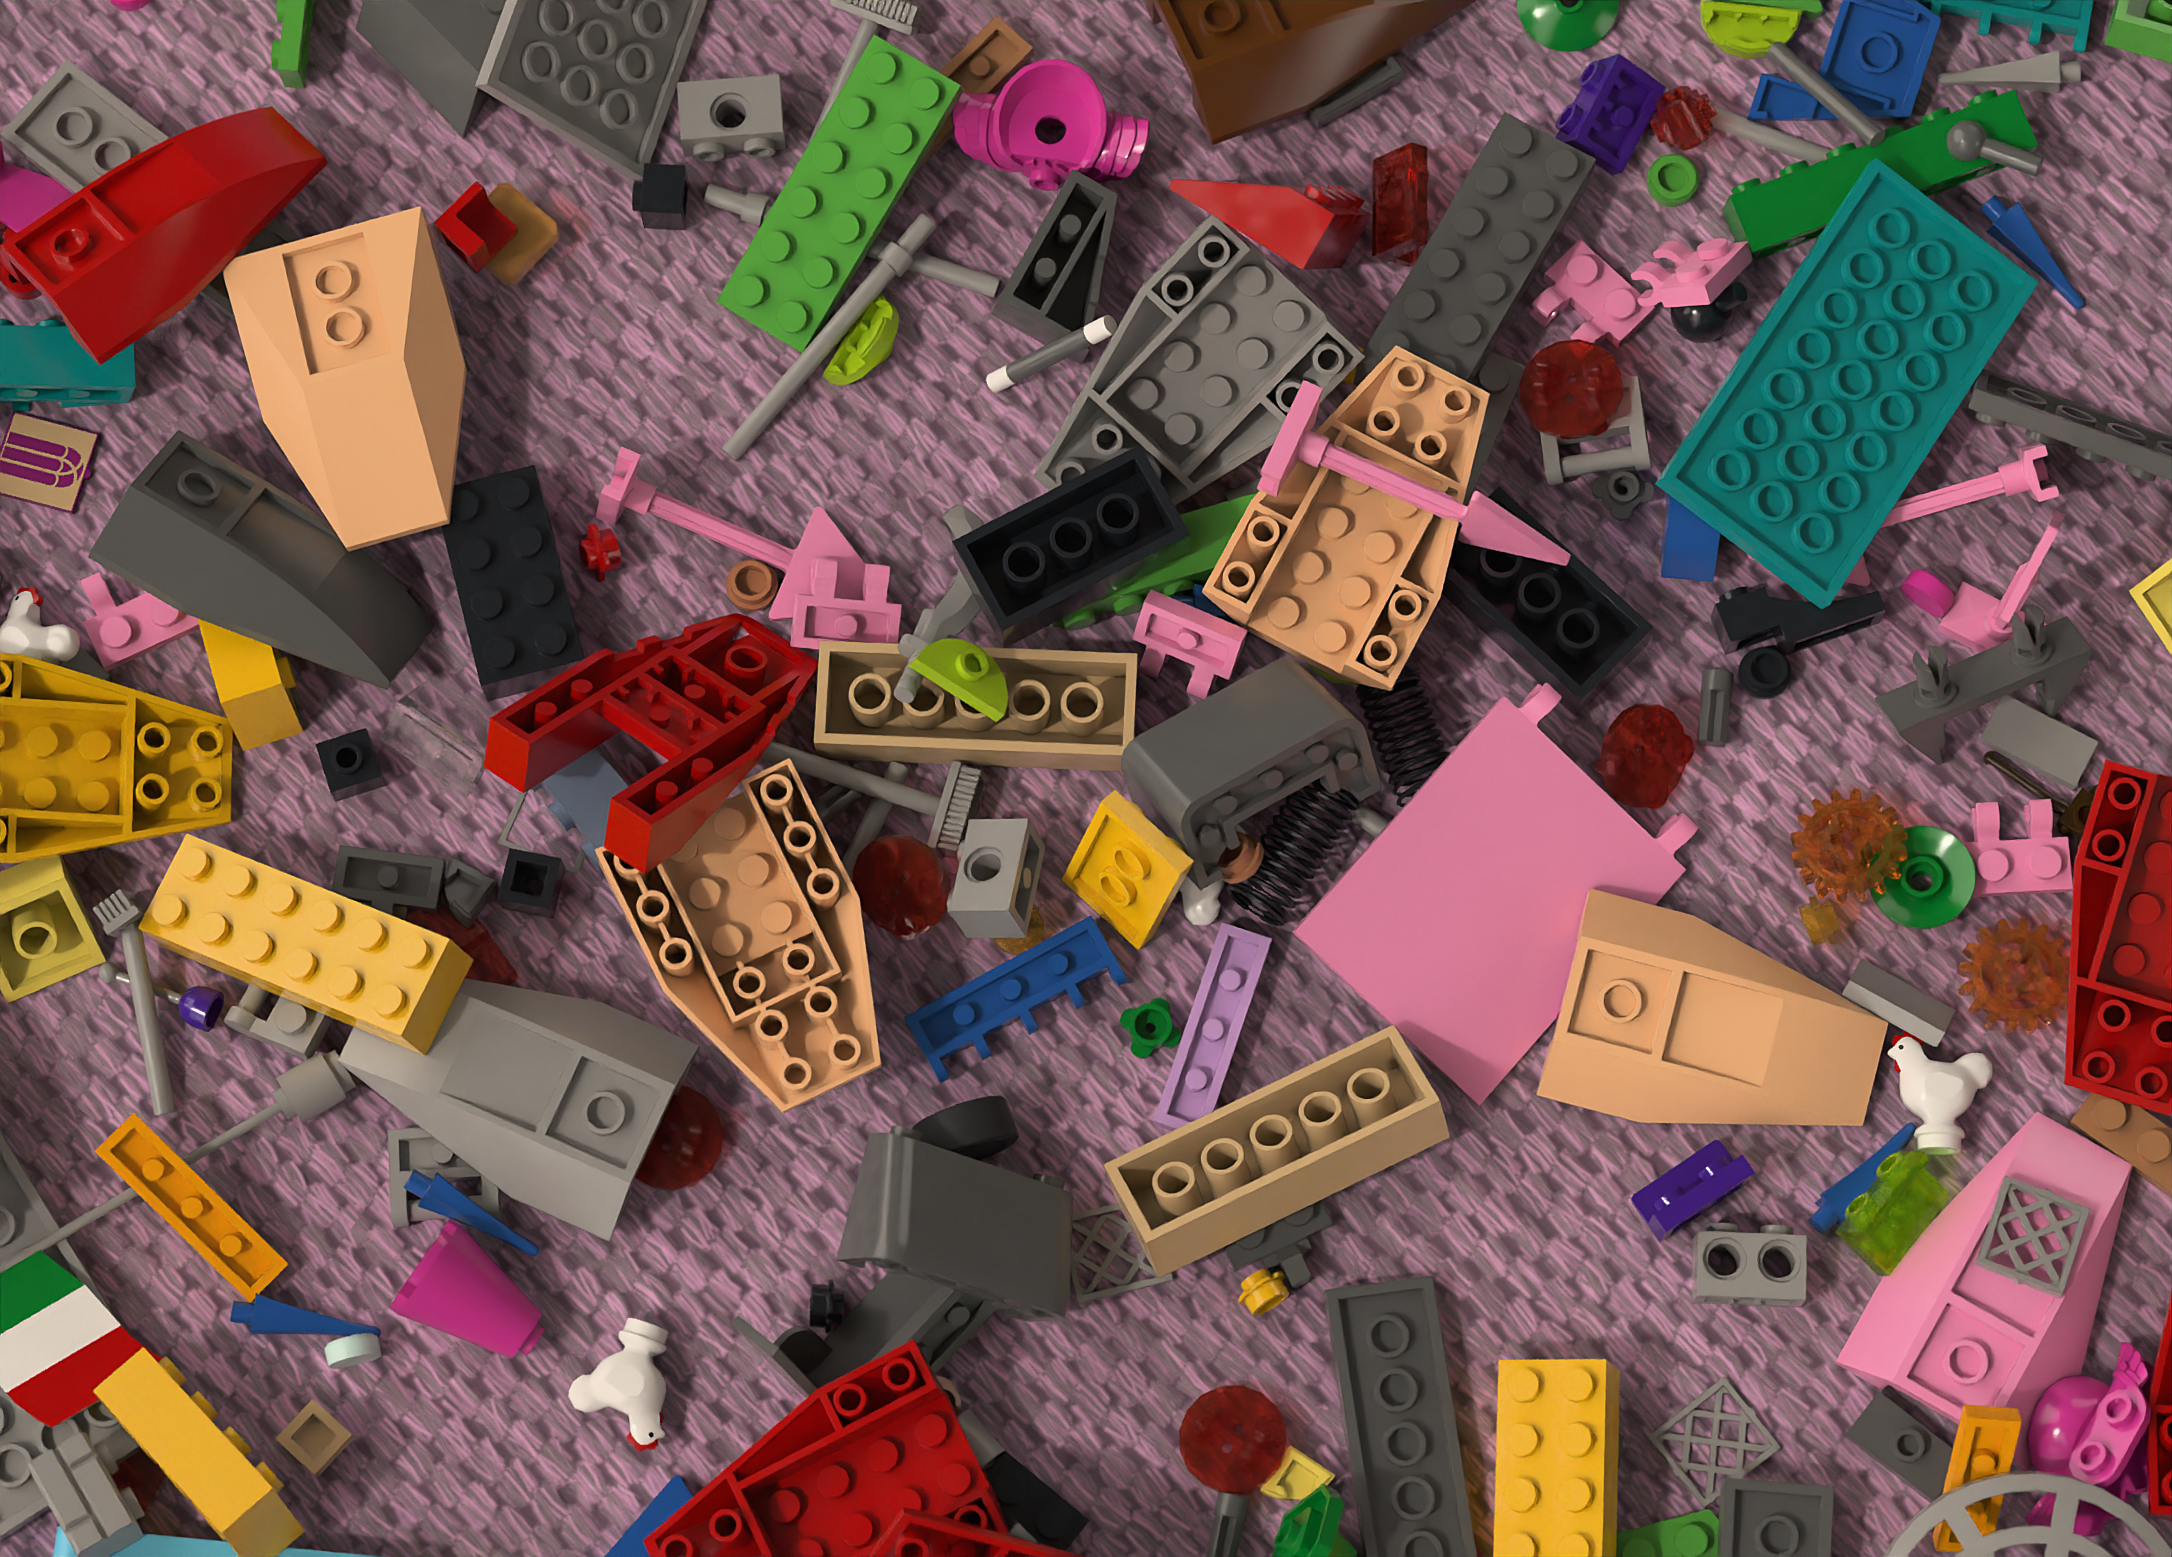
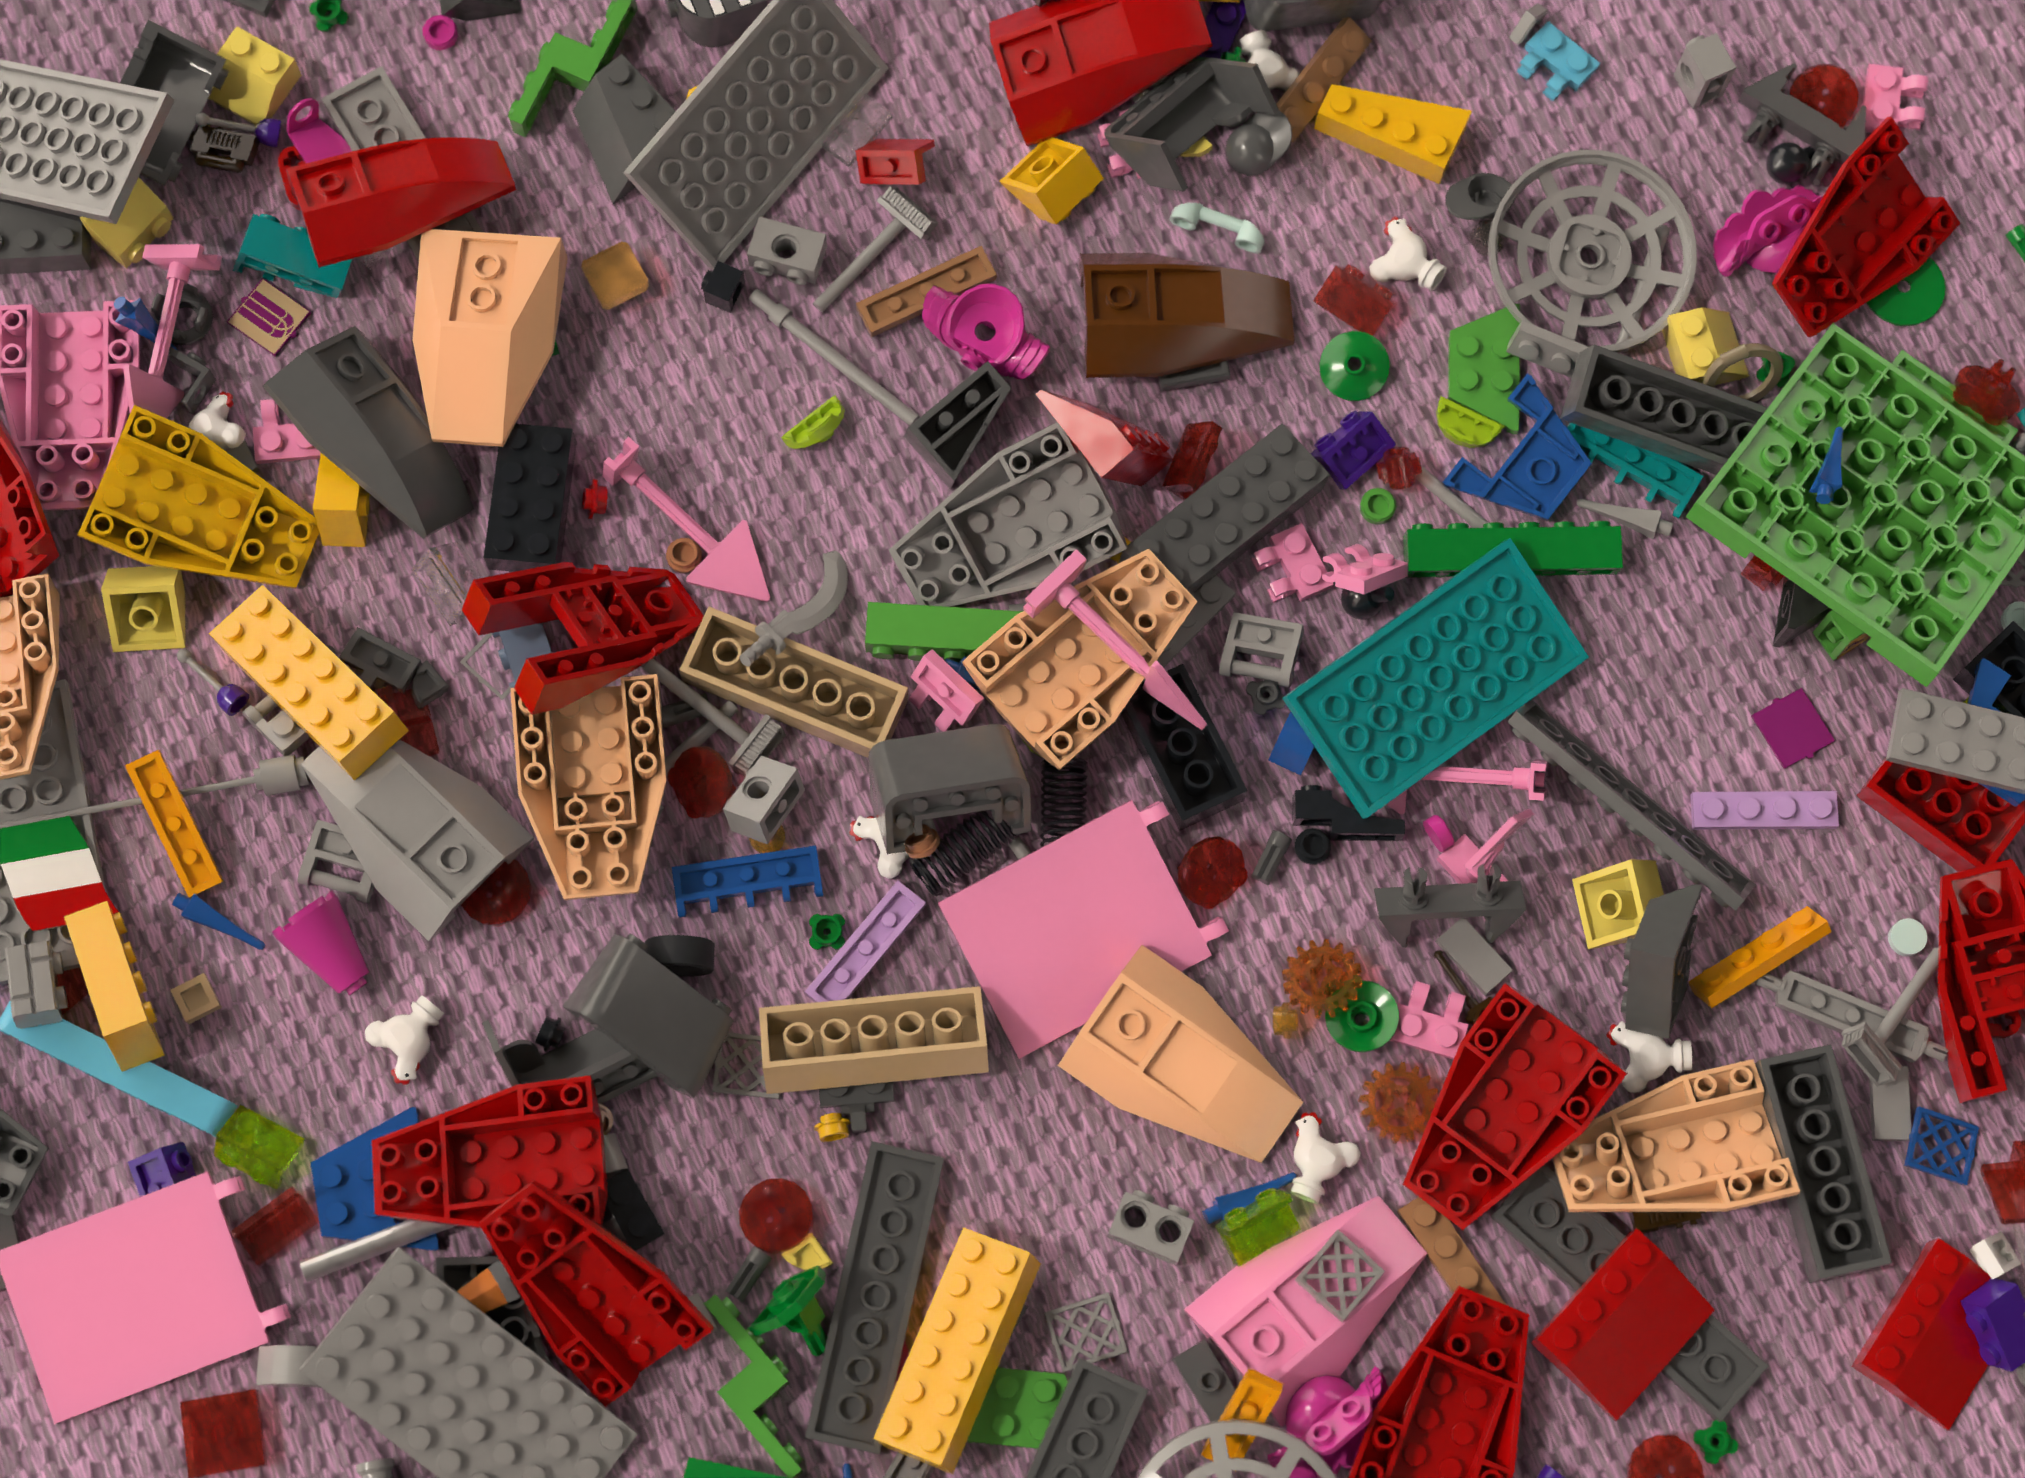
camera: 15 degrees right, 0 degrees up
(121, 919) = (199, 622): light grey piece -> none
(352, 1350) = (240, 951): light aqua tile -> none
(354, 780) = (390, 588): black plate -> none
(445, 1199) = (336, 878): blue piece -> none
(474, 228) = (593, 263): red panel -> none
(528, 866) = (465, 684): black plate -> none
(840, 194) = (834, 325): bright green plate -> none
(841, 619) = (731, 598): bright pink plate -> none
(893, 261) = (853, 379): light grey bar -> none
(965, 673) = (791, 660): lime plate -> none
(1051, 353) = (929, 475): dark grey bar -> none
(1071, 546) = (891, 603): black brick -> none
(1127, 869) = (847, 823): yellow plate -> none
(1595, 391) = (1270, 625): clear red plate -> none
(1691, 1189) = (1133, 1163): dark purple bracket -> none
(1826, 94) = (1497, 485): dark grey bar -> none
(1898, 1003) = (1315, 1092): light grey tile -> none
(1969, 141) = (1578, 549): dark grey bar -> none
(2017, 234) = (1589, 621): blue piece -> none

